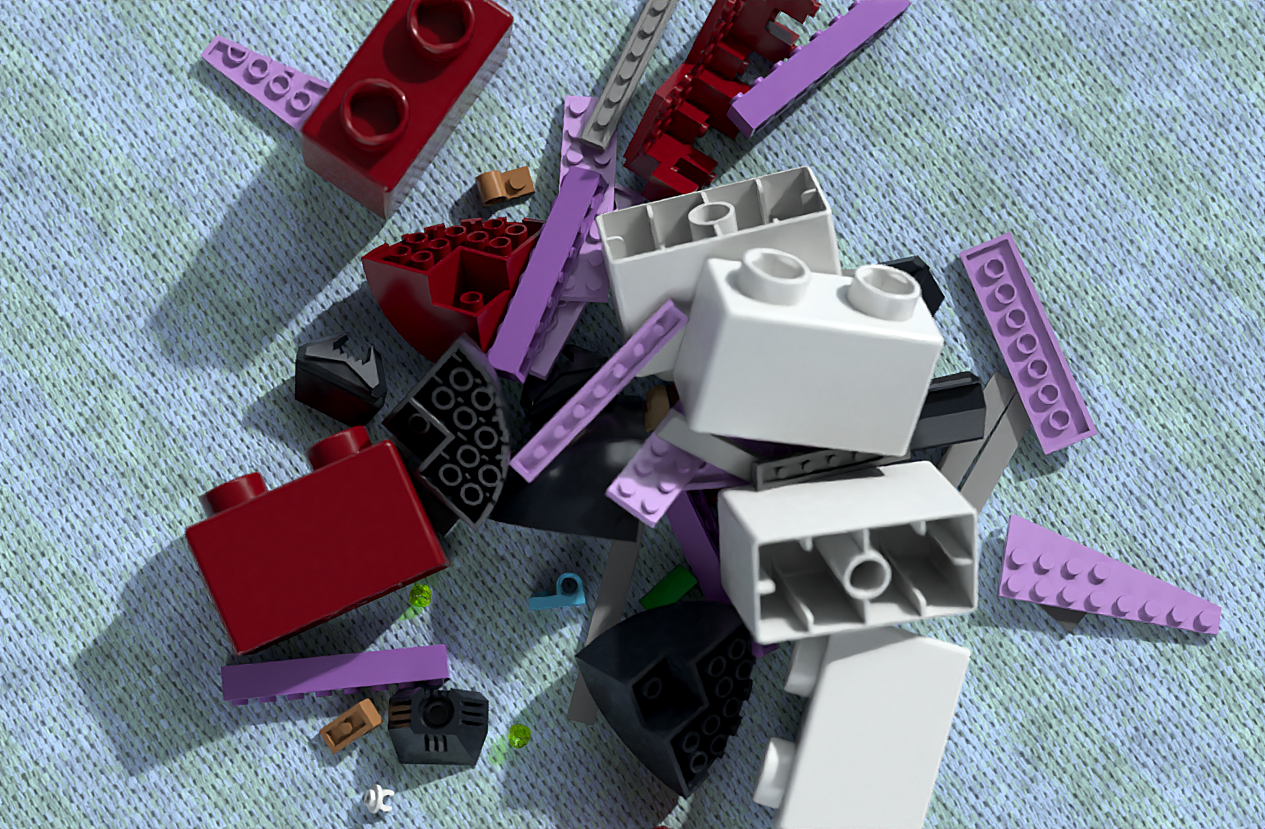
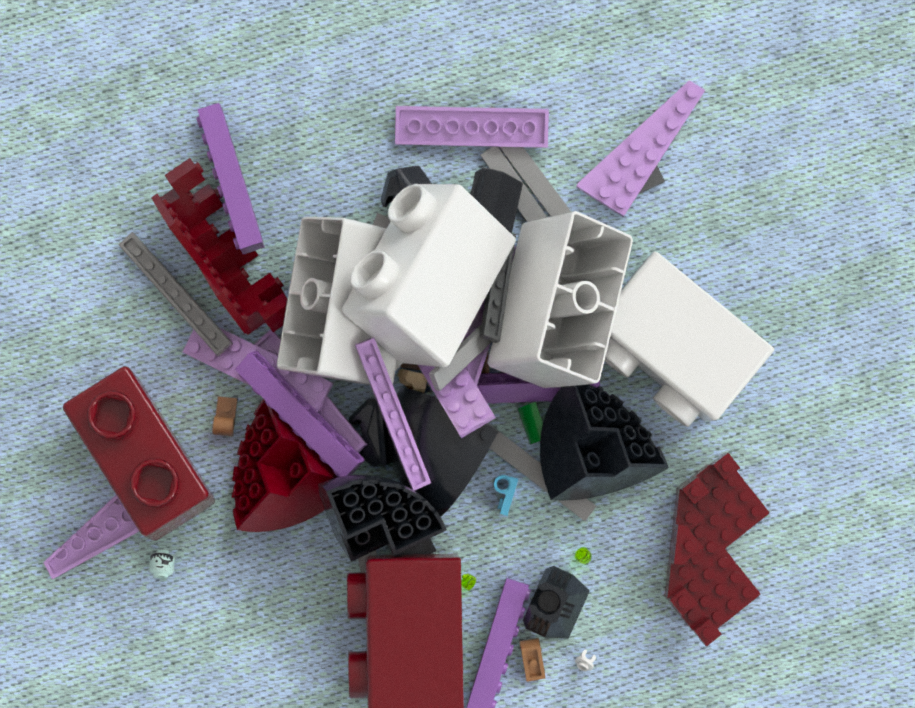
camera: 70 degrees left, 5 degrees up
(276, 185) = (161, 564): none -> light aqua head
(338, 383) = (310, 576): black helmet -> none

